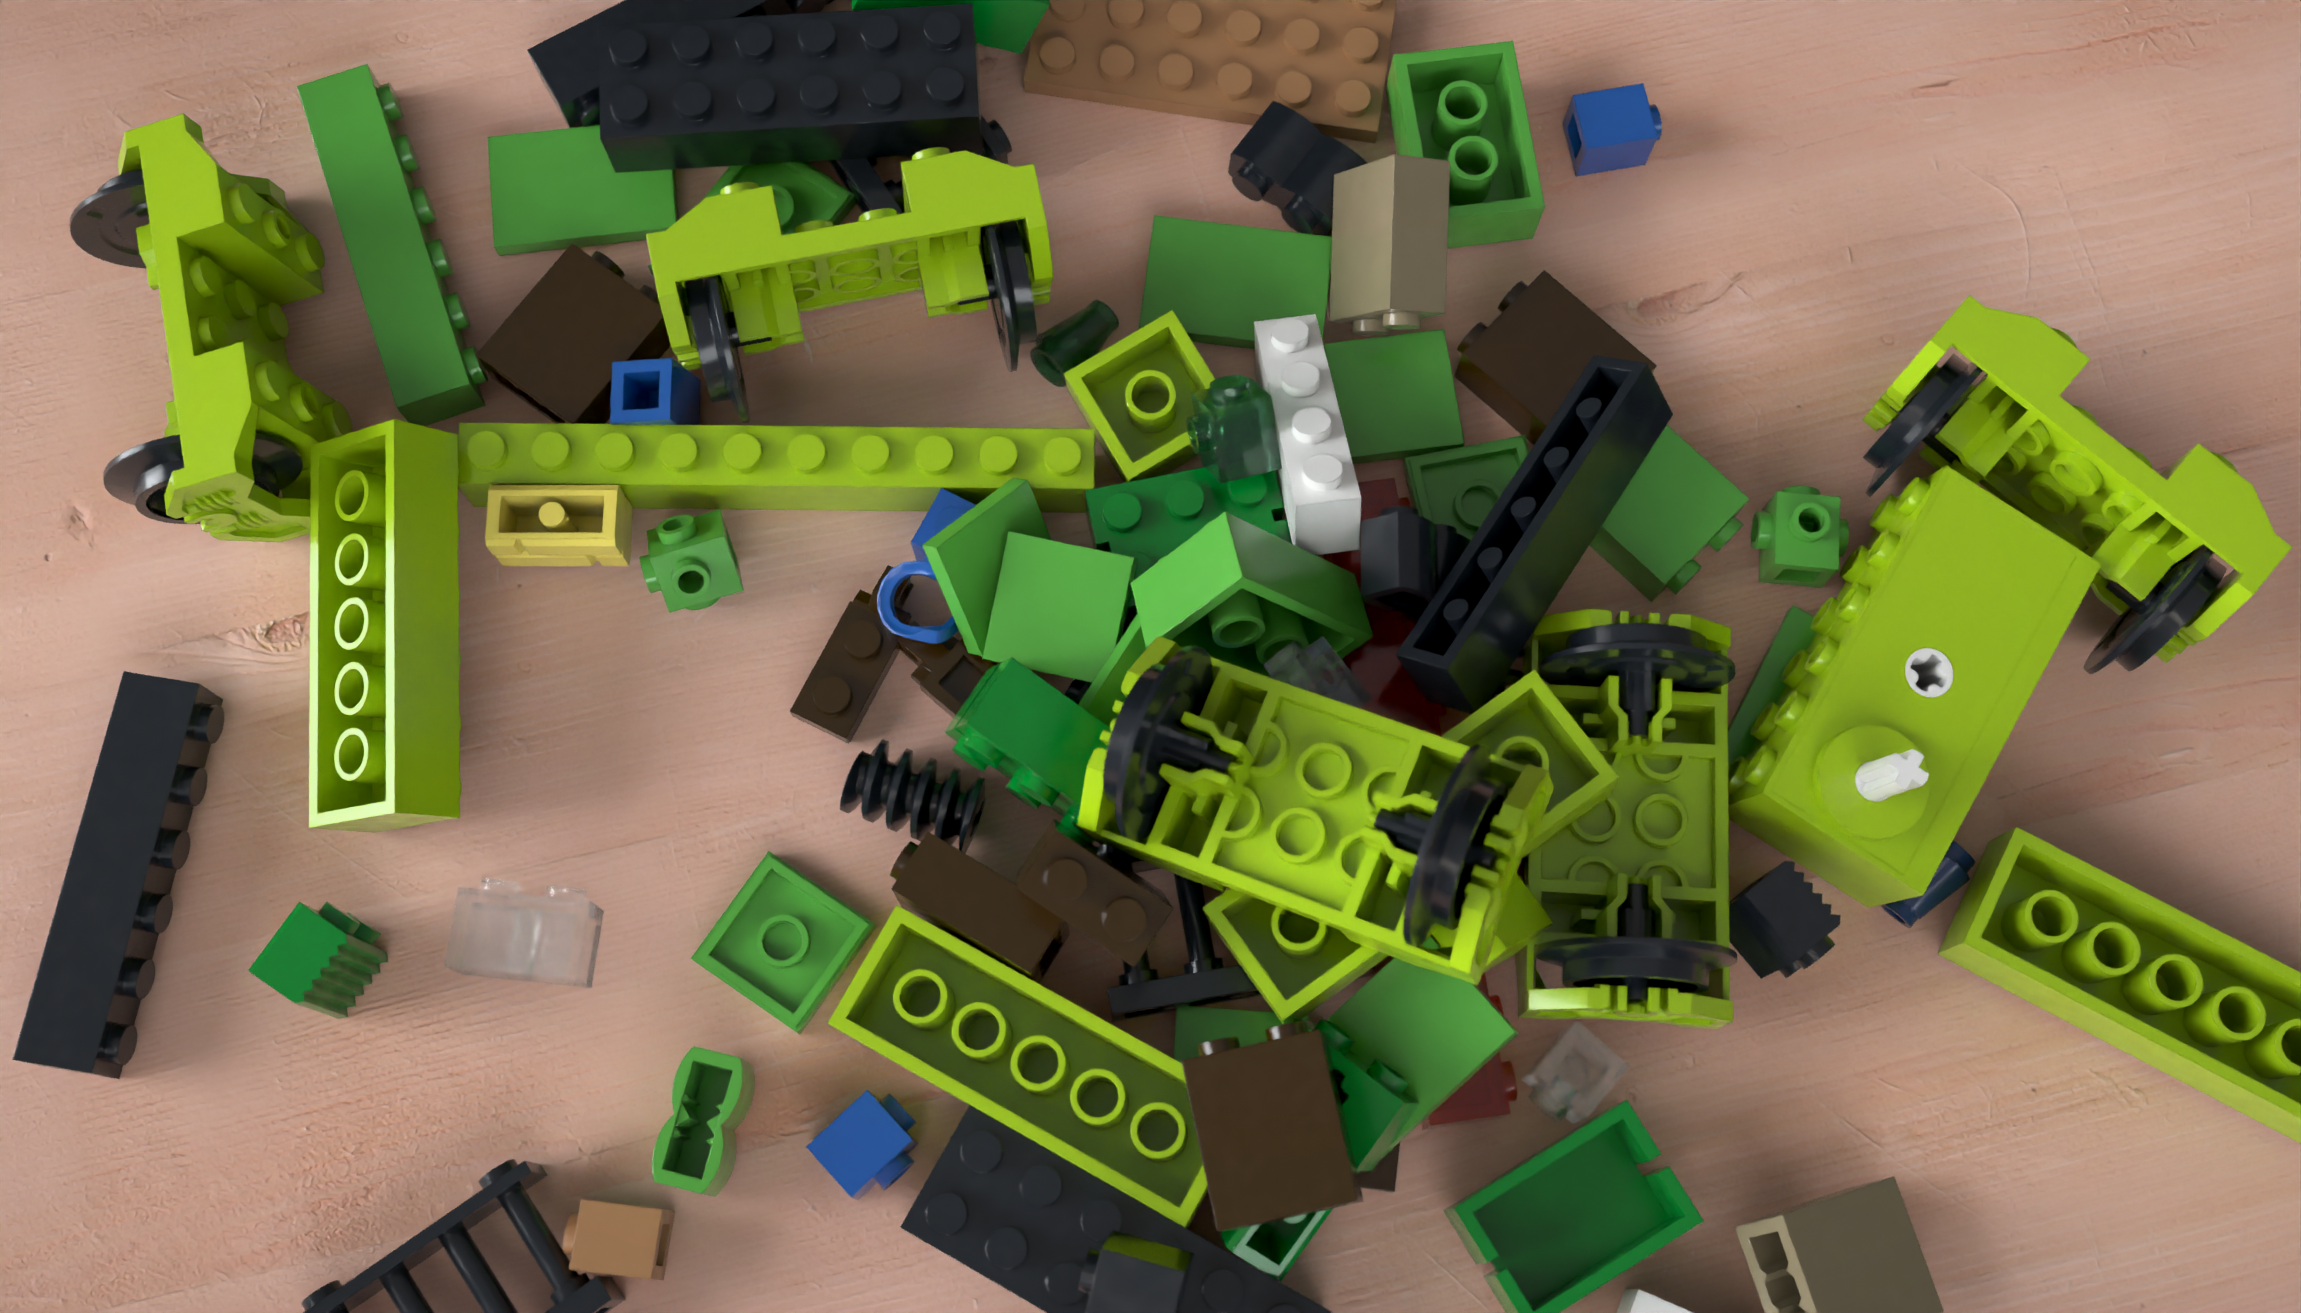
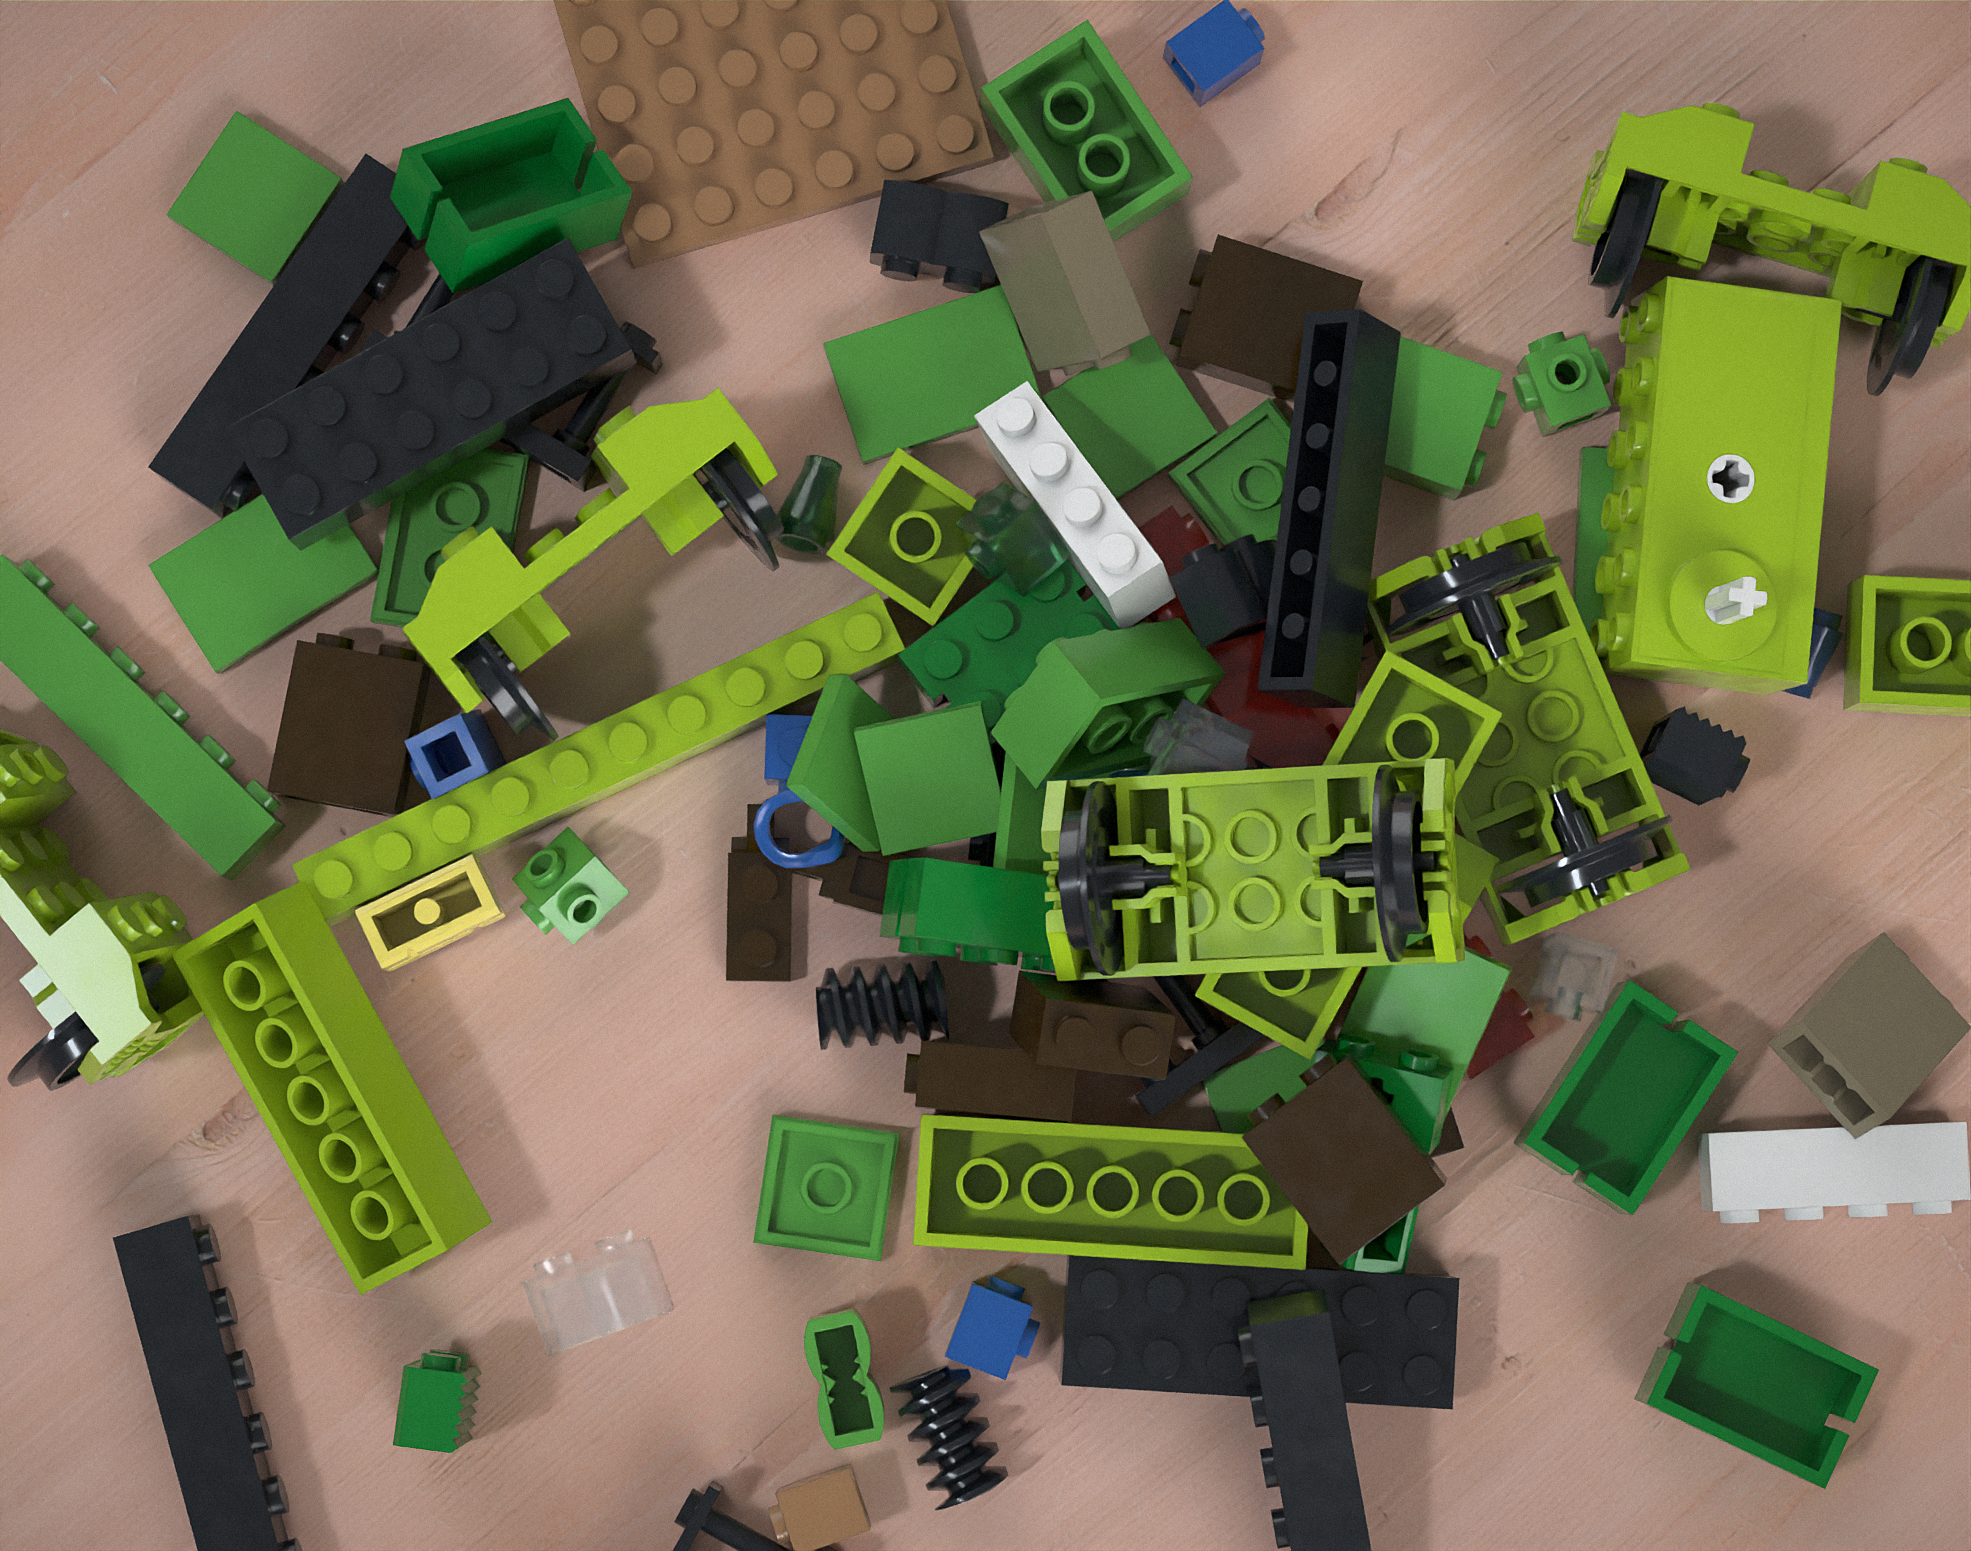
camera: 30 degrees left, 10 degrees up
(775, 1225) = (950, 1434): none -> black piece

